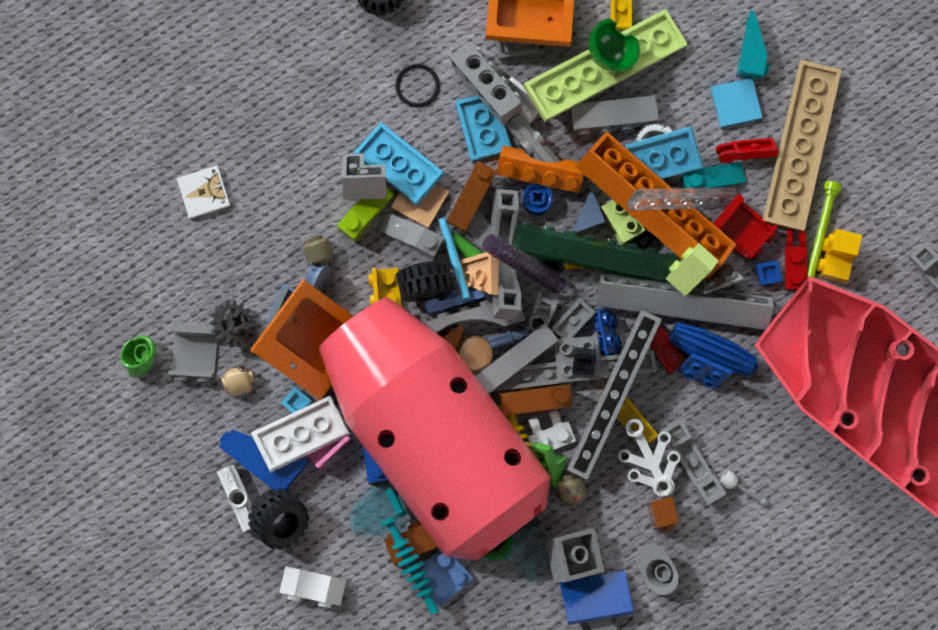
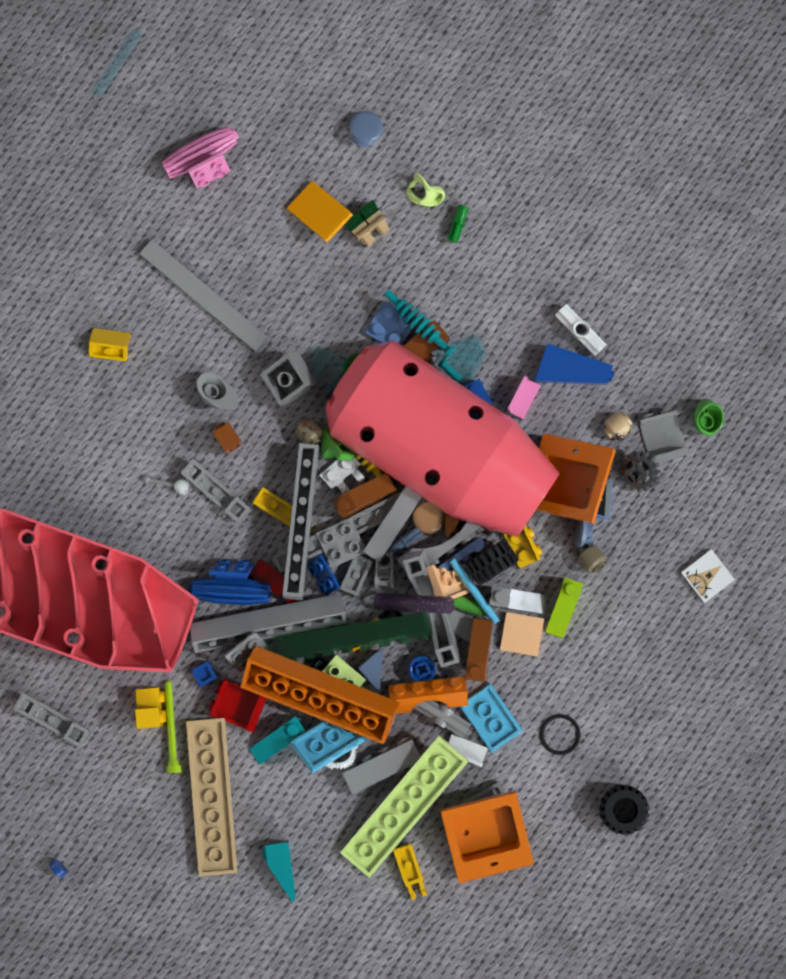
camera: 160 degrees right, 5 degrees up
(288, 529) = (541, 322): black tyre -> none
(295, 400) = (563, 425): medium azure plate -> none
(300, 434) = (549, 399): white tile -> none
(312, 586) = (502, 279): white brick -> none
(362, 180) = (575, 629): light grey brick -> none
(405, 166) = (550, 658): medium azure tile -> none
(502, 109) = (528, 767): light grey brick -> none
(584, 361) = (335, 541): black slope -> none
(596, 597) = (258, 351): blue tile -> none
(611, 48) = (402, 818): green cylinder -> none
(651, 461) = (252, 478): white plant -> none
(681, 198) = (299, 706): clear plate -> none
(691, 269) = (271, 648): yellowish green brick -> none
(736, 103) = (280, 815): medium azure tile -> none
(746, 150) = (257, 775): red hinge -> none
(795, 261) = (184, 691): red hinge -> none

